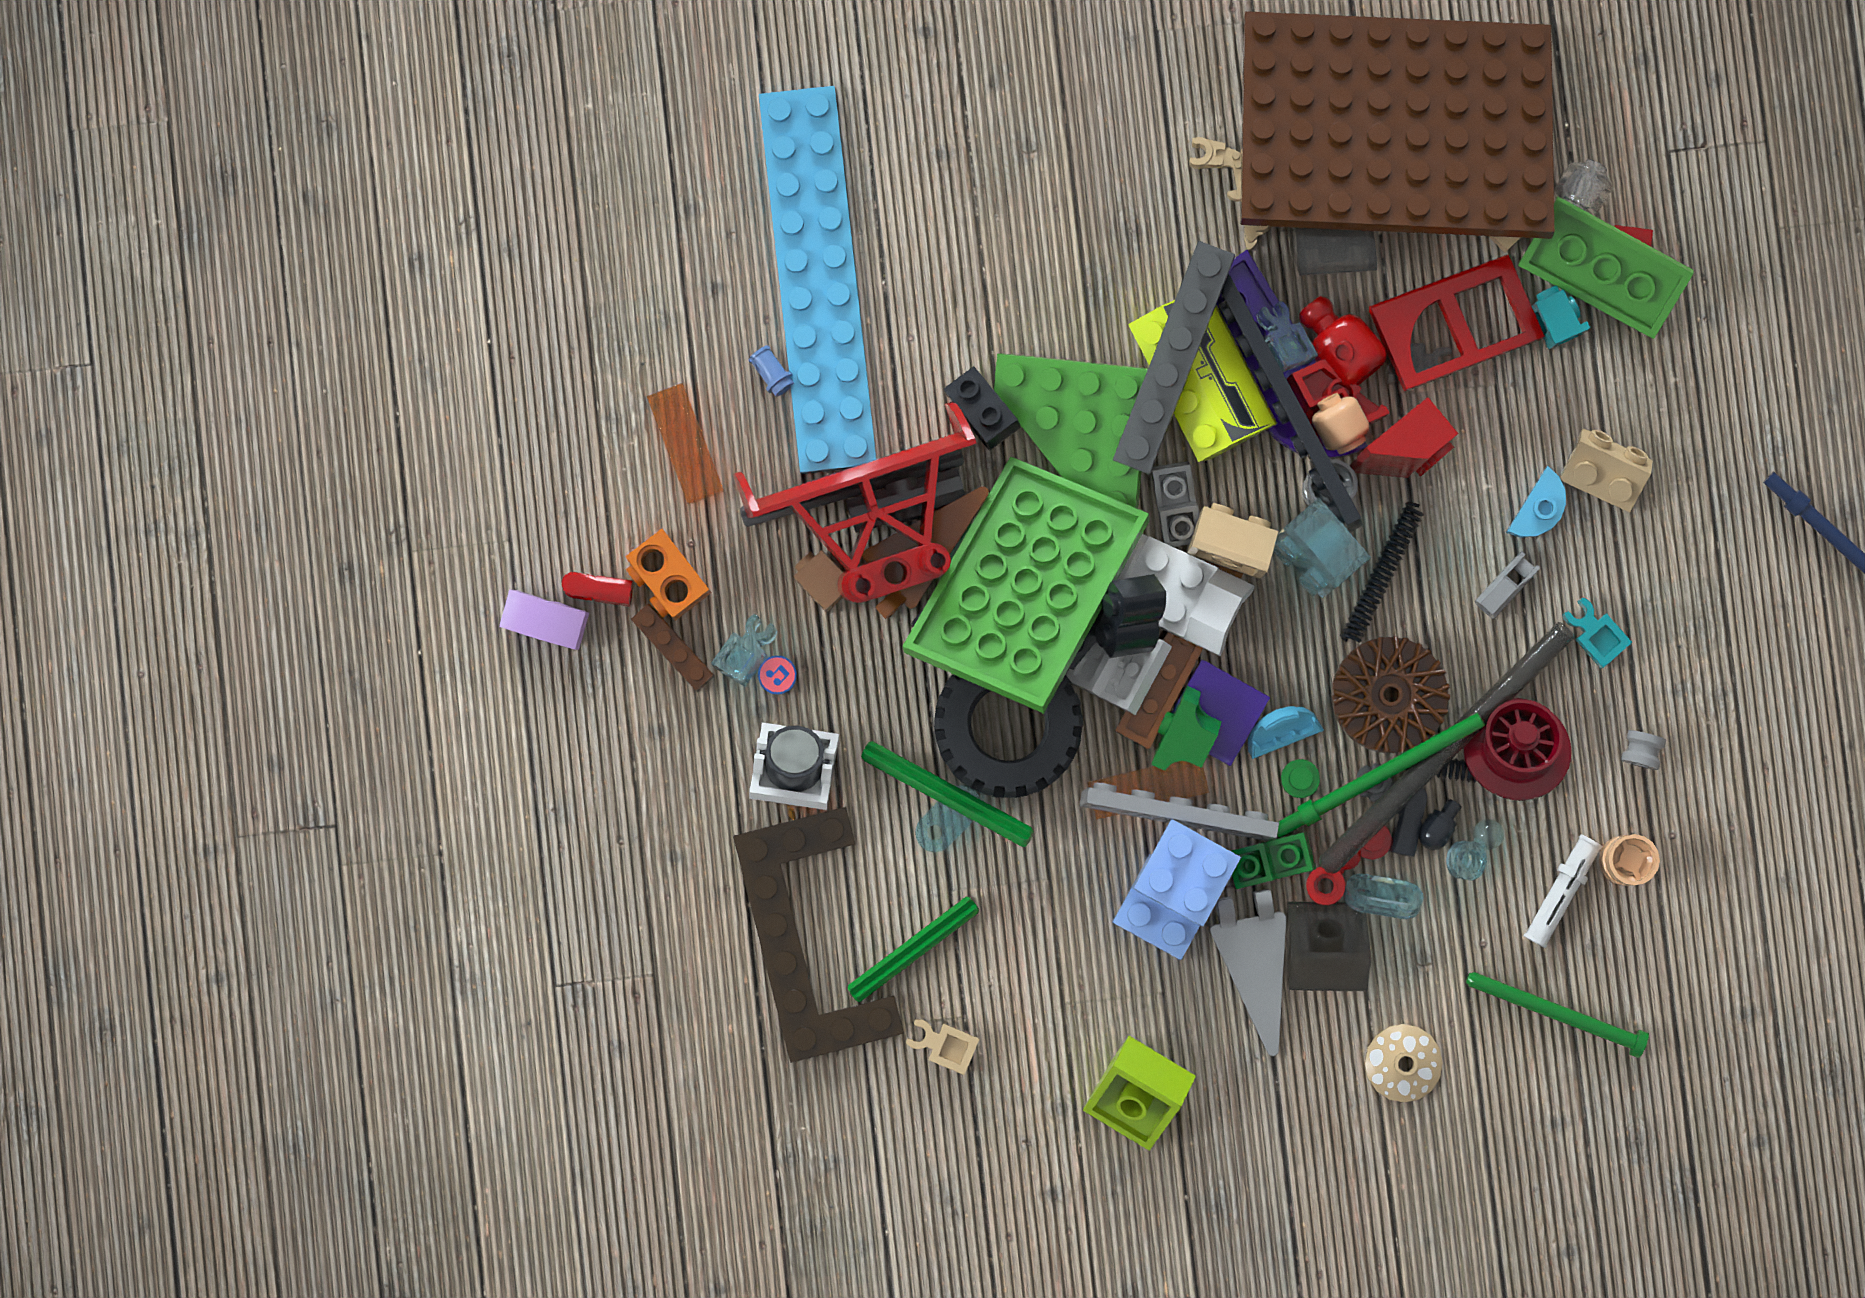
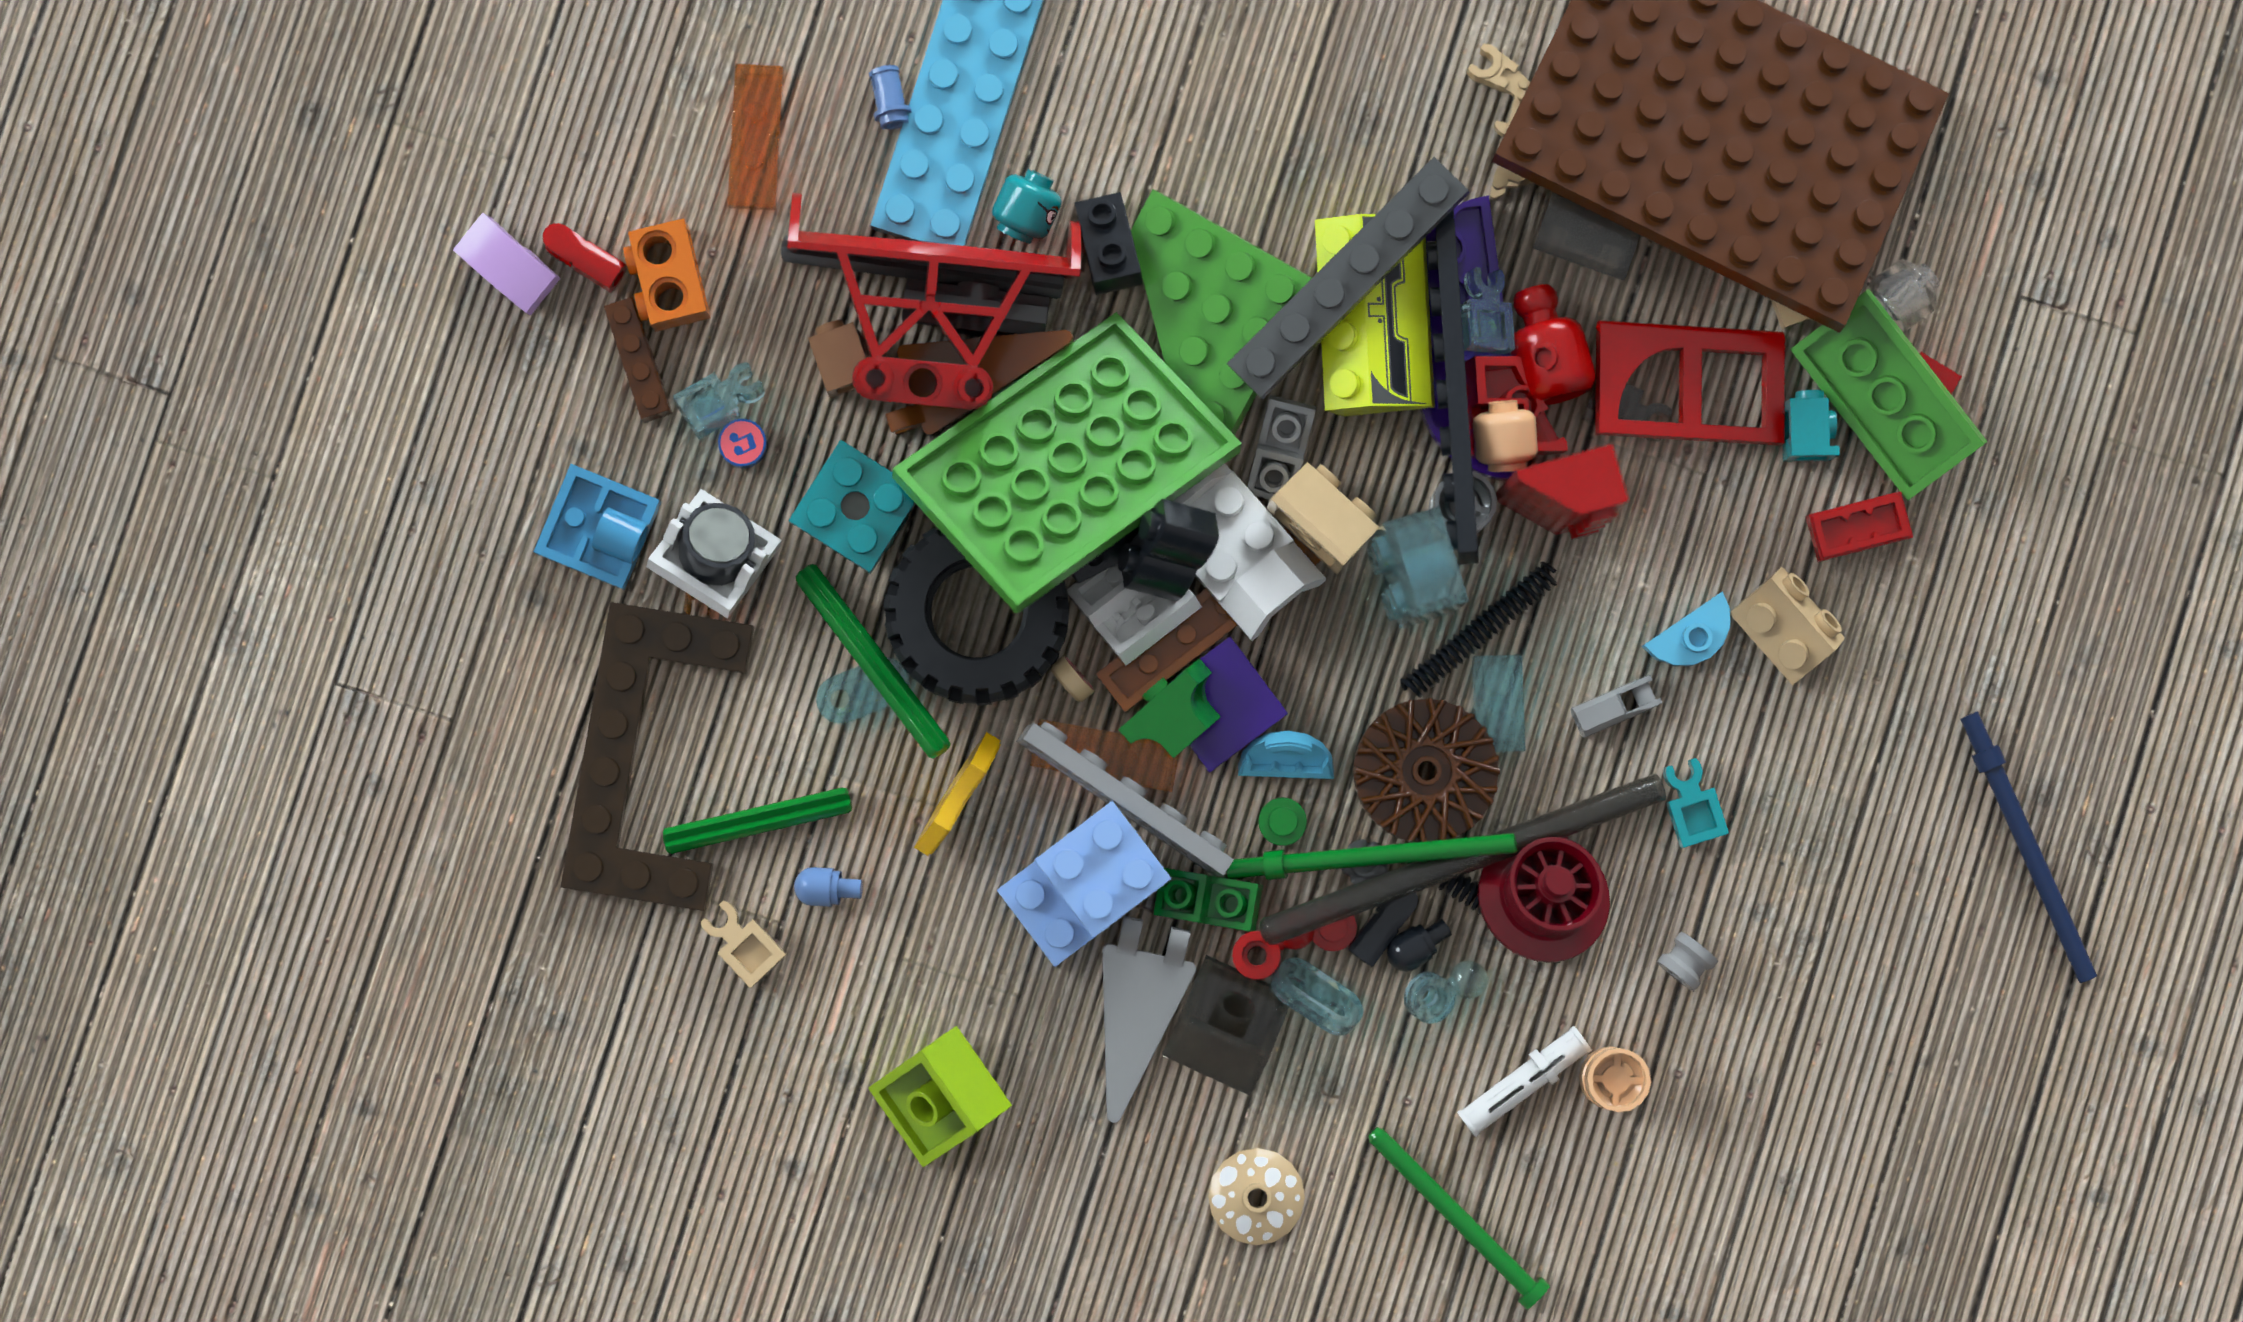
camera: 15 degrees right, 0 degrees up
(698, 784) = (597, 526): none -> dark azure plate
(882, 686) = (854, 507): none -> teal piece
(910, 407) = (1026, 206): none -> teal head
(985, 976) = (825, 887): none -> medium blue cylinder
(1053, 864) = (958, 794): none -> yellow tile
(1099, 742) = (1072, 679): none -> tan tile
(1420, 617) = (1500, 700): none -> clear light blue plate
(1627, 373) = (1859, 526): none -> red plate

